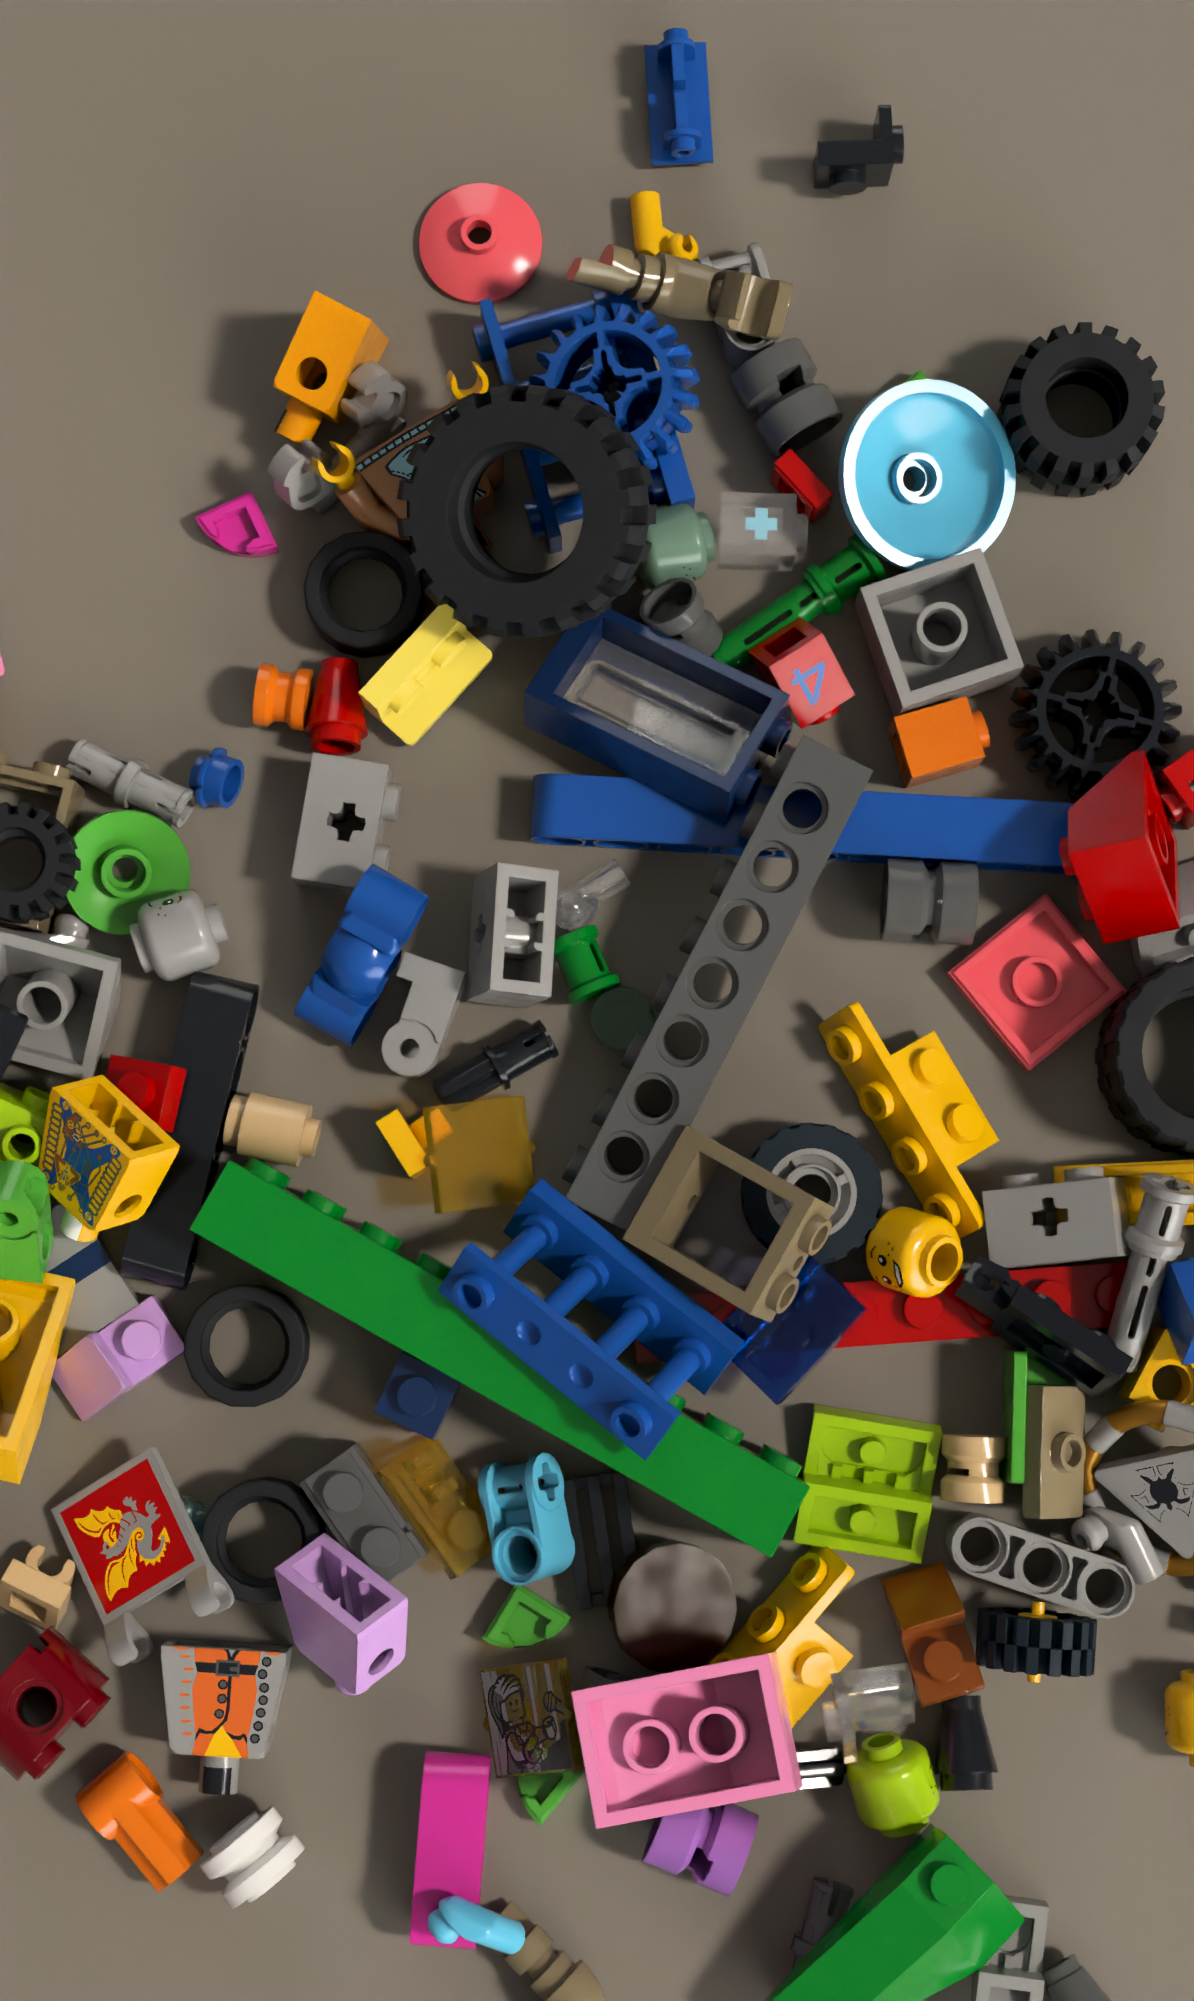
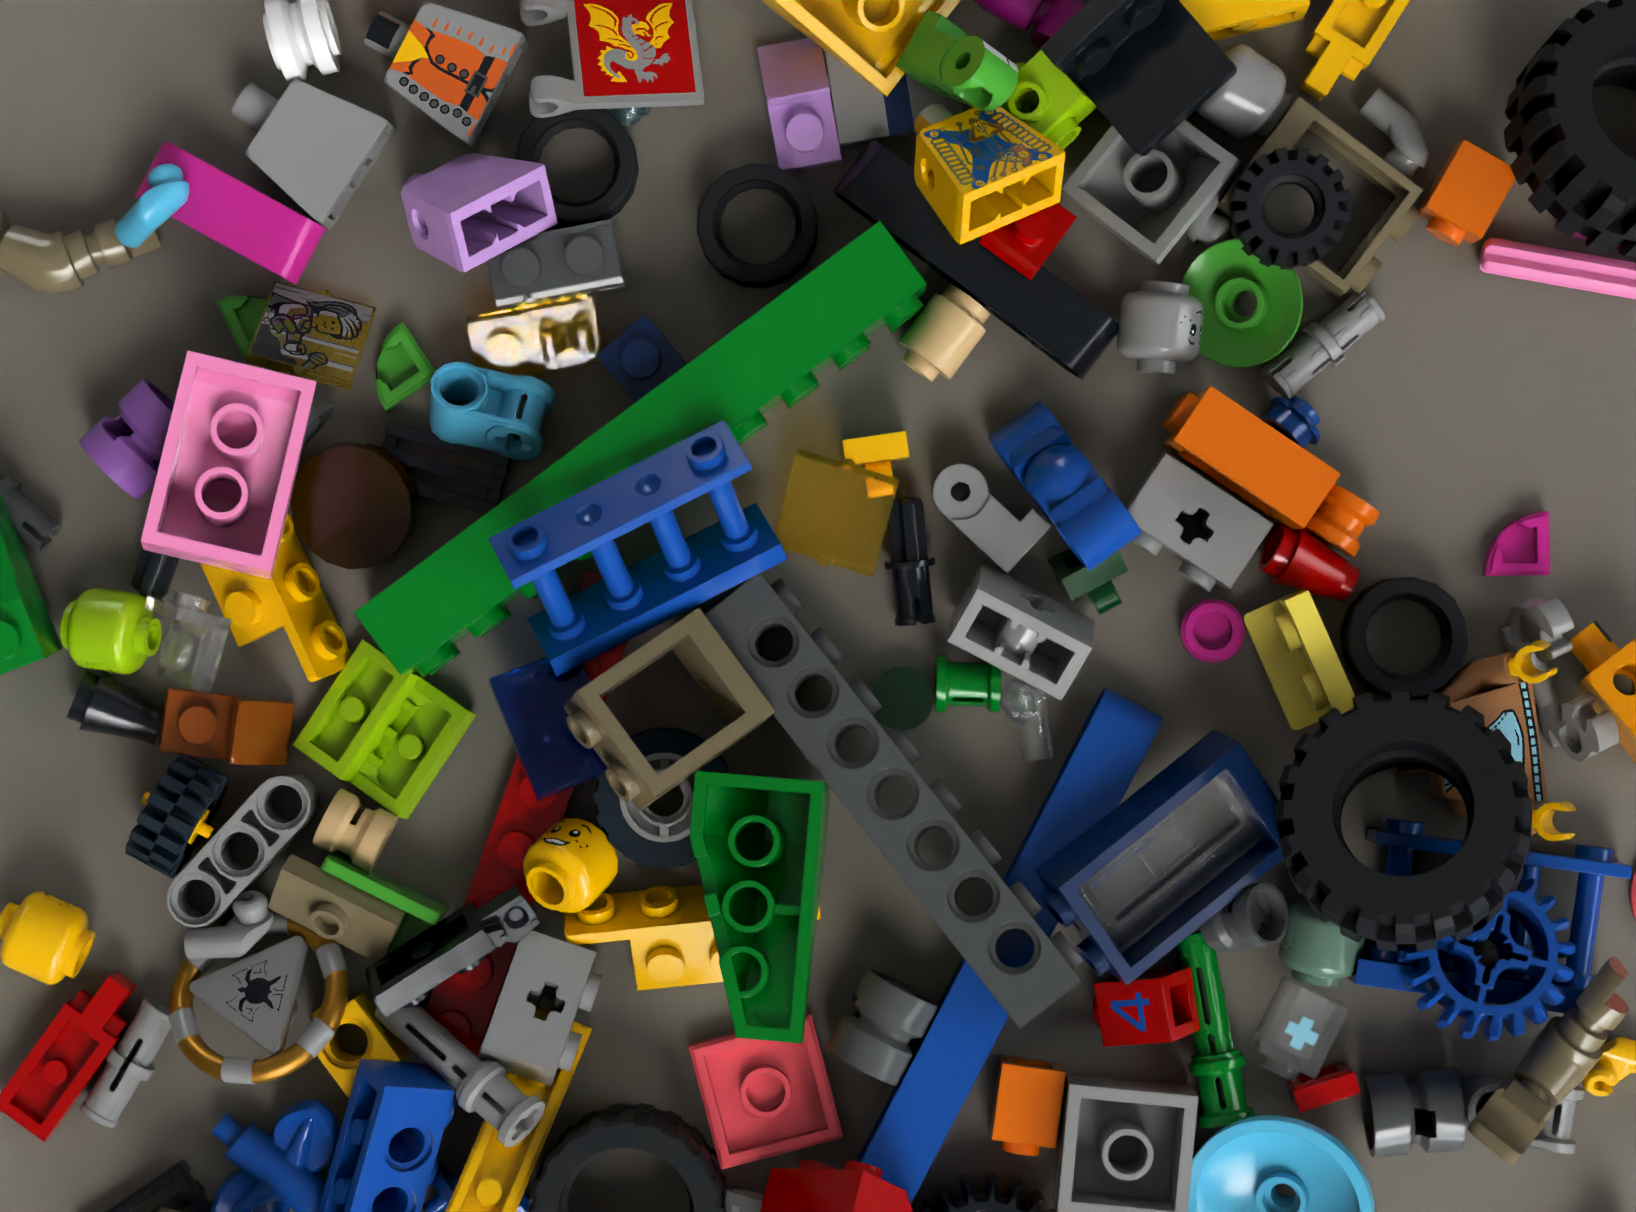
camera: 115 degrees right, 5 degrees up
(262, 800) = (1248, 457): none -> orange window
(352, 1799) = (312, 144): none -> light grey torso
(435, 768) = (1211, 630): none -> dark pink tile
(443, 904) = (1094, 583): none -> dark green tile
(847, 1068) = (761, 881): none -> green wedge

